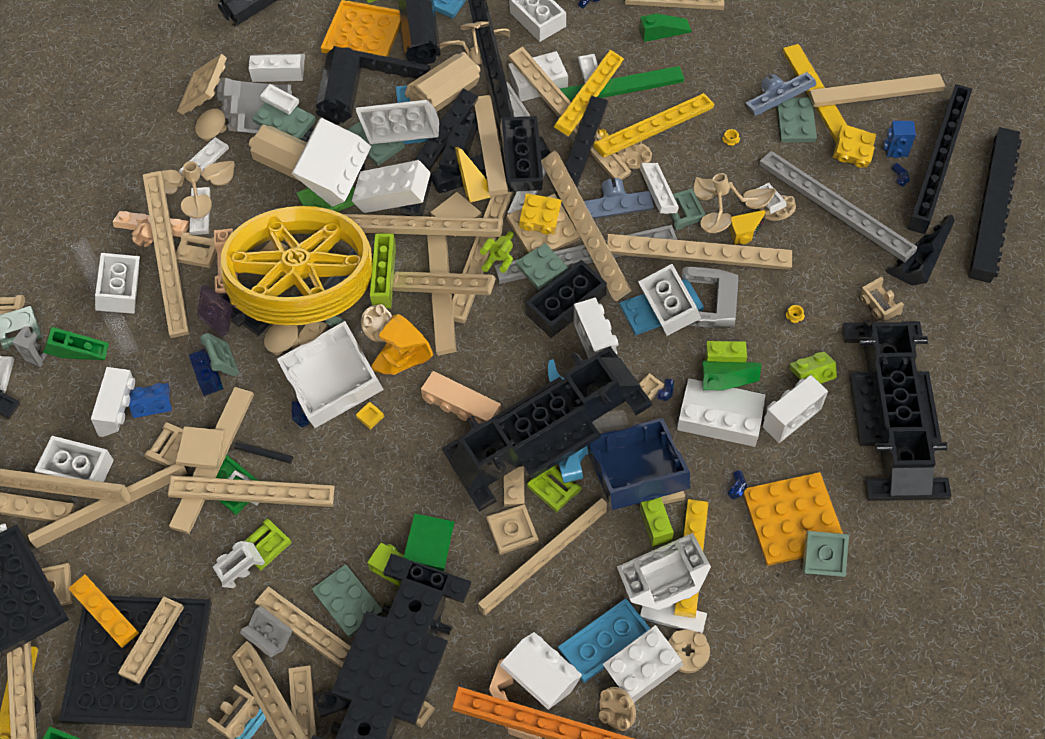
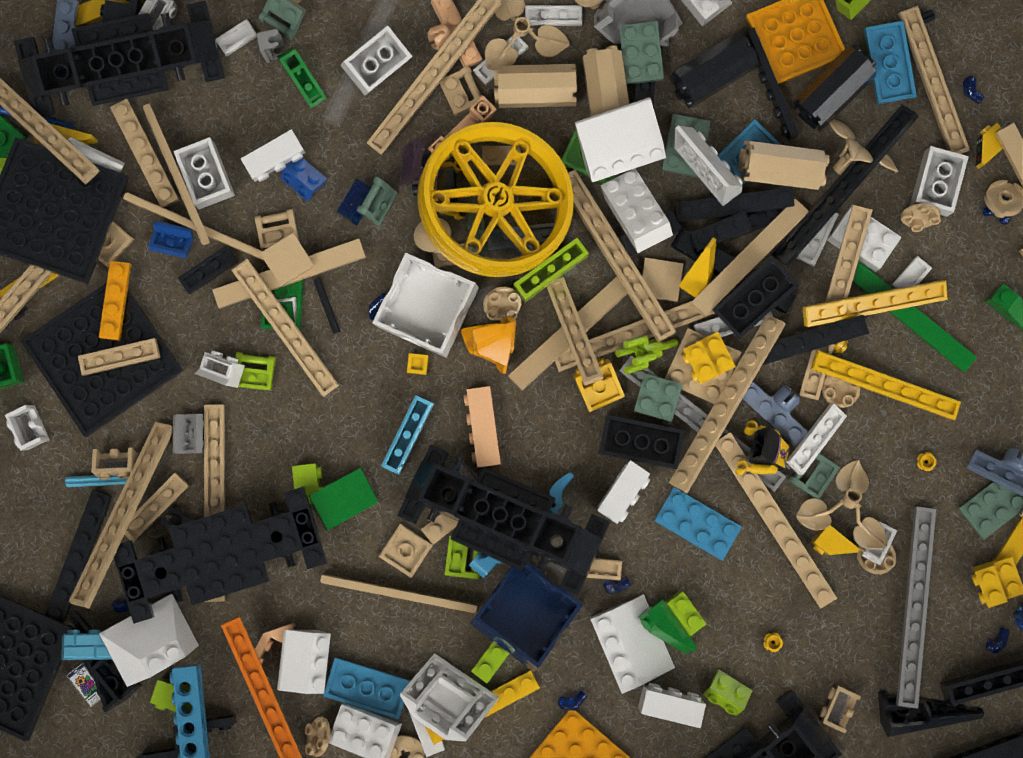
camera: 55 degrees right, 25 degrees up
(98, 530) = (171, 239): none -> blue bracket
(150, 521) = (207, 270): none -> black plate
(241, 194) = (535, 85): none -> tan brick
(279, 99) = (653, 35): white tile -> none
(346, 599) = (258, 471): sand green plate -> none
(419, 457) = (407, 435): none -> medium azure brick
(500, 304) = (602, 391): none -> yellow plate
(552, 35) = (920, 216): none -> tan dish
(641, 218) = (768, 451): none -> torso
(669, 299) = (697, 534): white brick -> none
(726, 295) = (742, 575): light grey connector -> none

